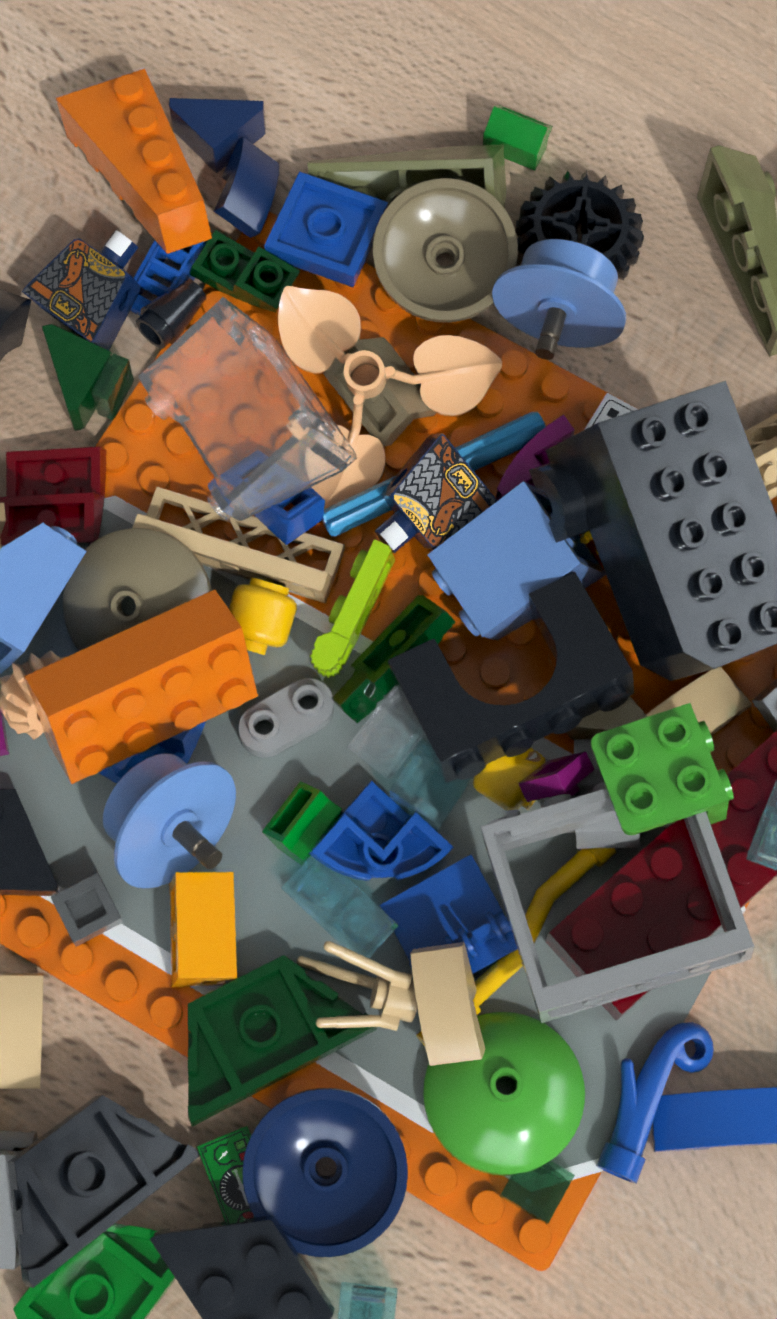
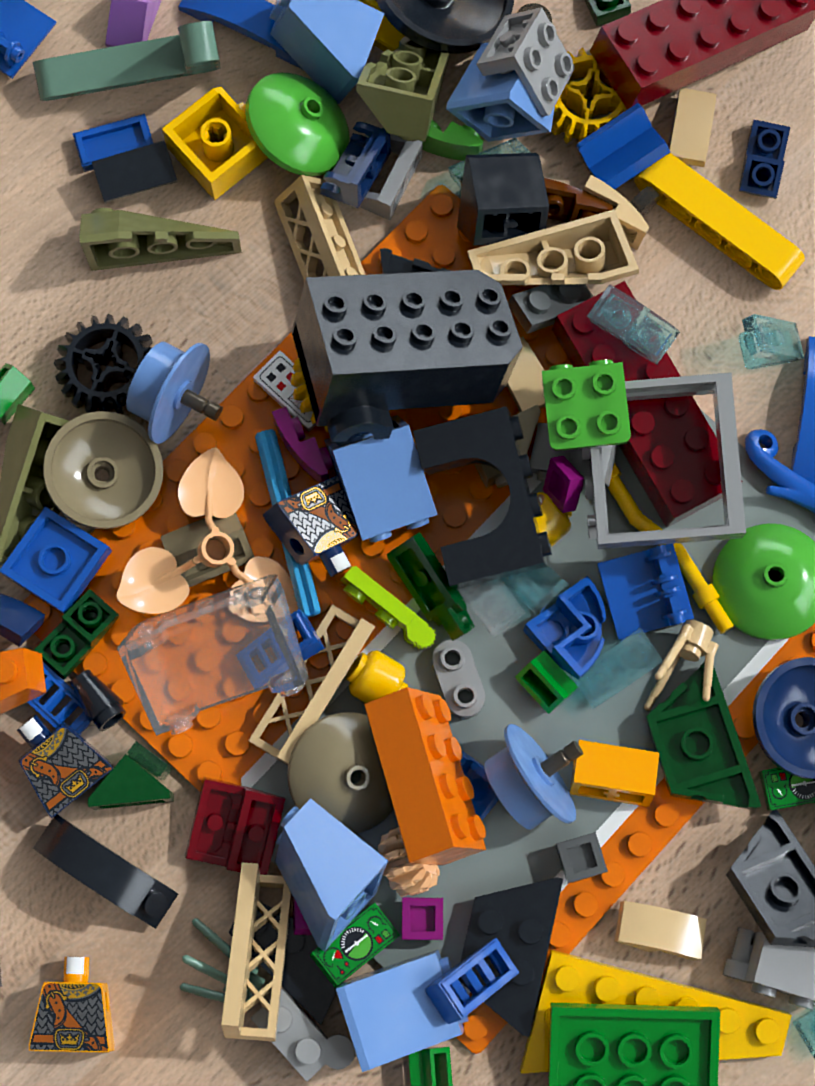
camera: 80 degrees left, 5 degrees up
(446, 1004) = (711, 602): tan slope -> none

